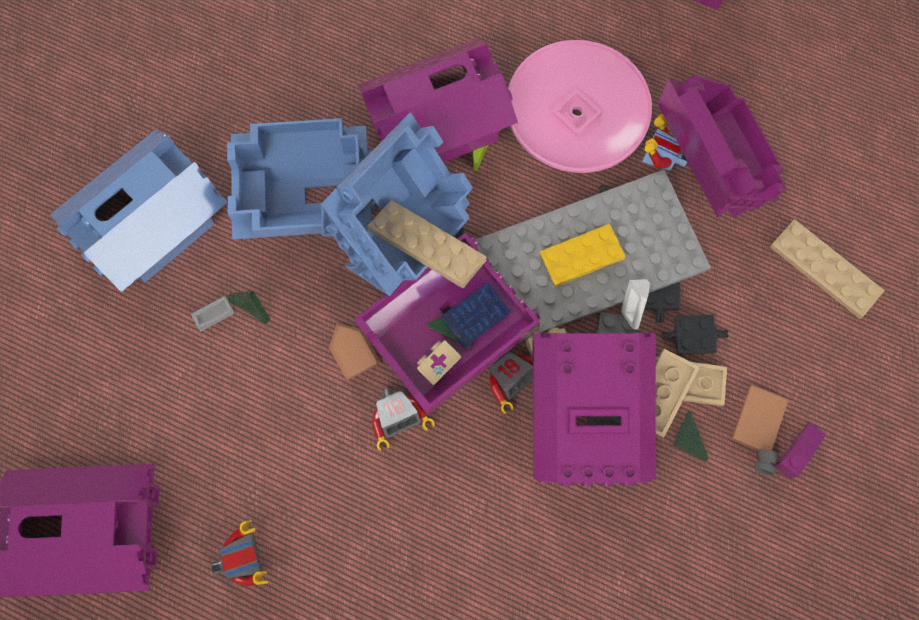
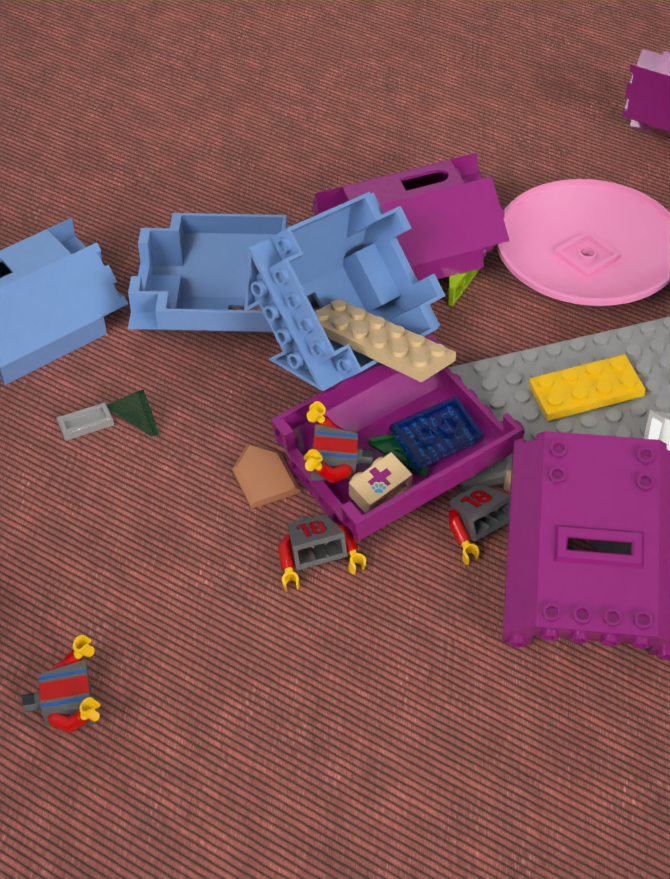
camera: 10 degrees right, 25 degrees down
(403, 341) = (333, 450): none -> torso

